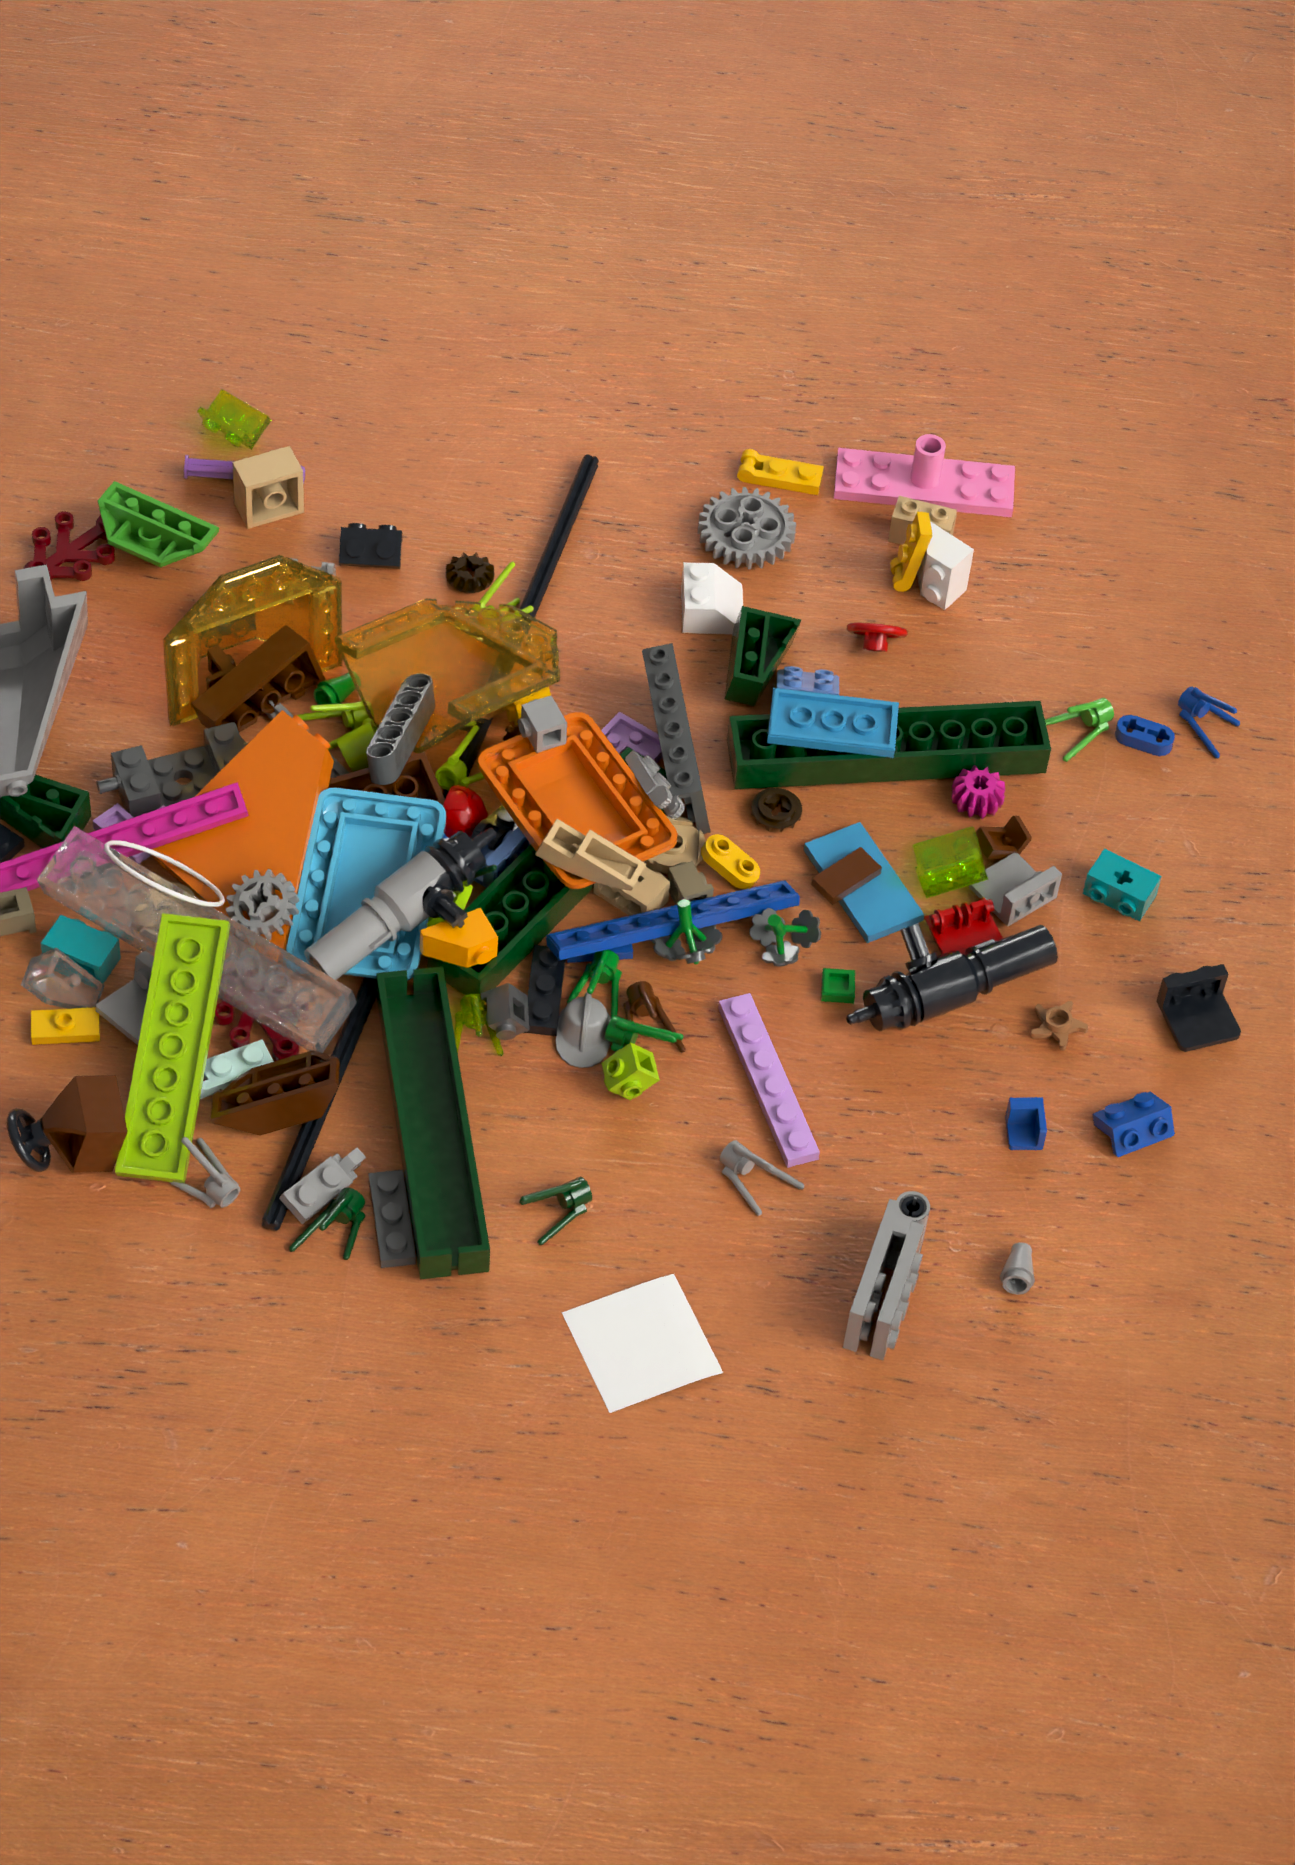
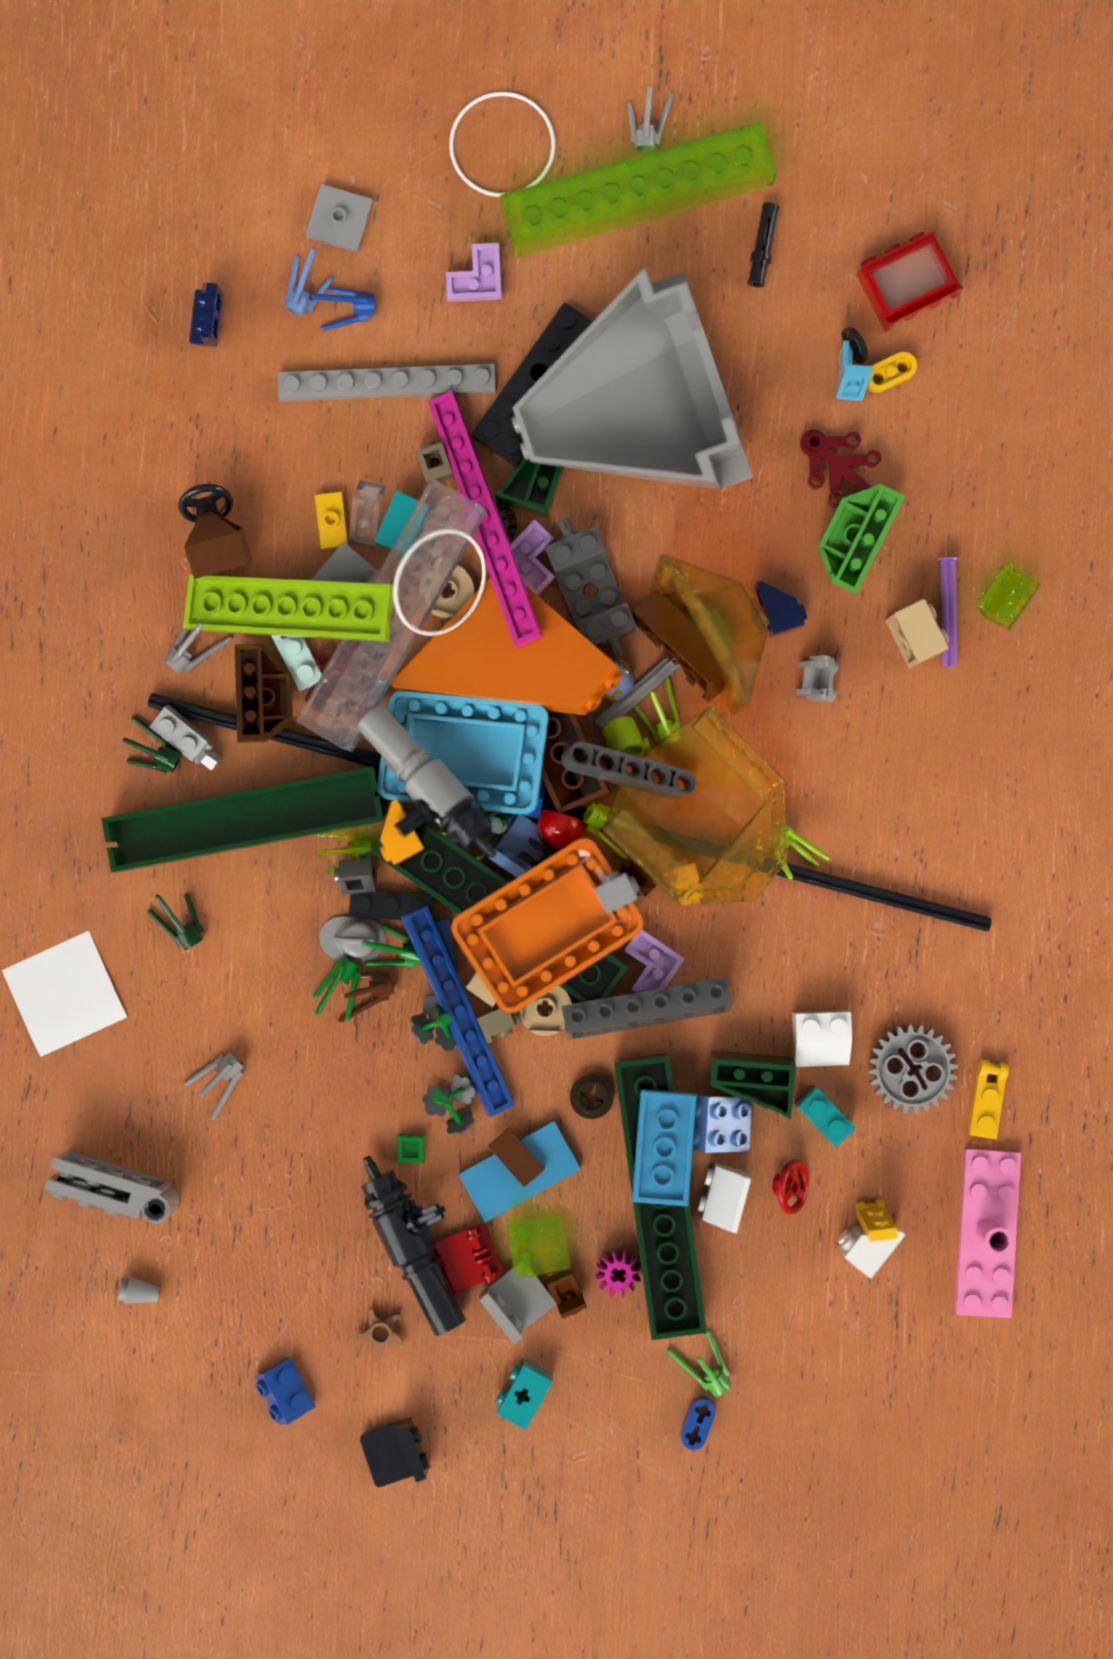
camera: 90 degrees right, 35 degrees up
(262, 904) = (423, 658): light grey gear -> none
(334, 690) = (689, 707): green cone -> none
(370, 546) = (865, 731): black bracket -> none
(392, 1219) = (162, 793): dark grey plate -> none
(462, 580) = (832, 814): dark brown gear -> none
(590, 857) = (472, 939): tan slope -> none
(630, 1071) = (301, 978): lime brick -> none
(655, 784) = (567, 991): light grey hinge -> none
(730, 861) = (526, 1059): yellow plate -> none
(768, 1080) = (312, 1090): lavender plate -> none
(801, 596) = (824, 1115): none -> teal brick
(891, 676) = (724, 1196): none -> white slope
(905, 513) = (925, 1230): tan brick -> none
(1026, 1123) = (275, 1302): blue panel -> none
(1197, 704) = (735, 1473): blue plant -> none

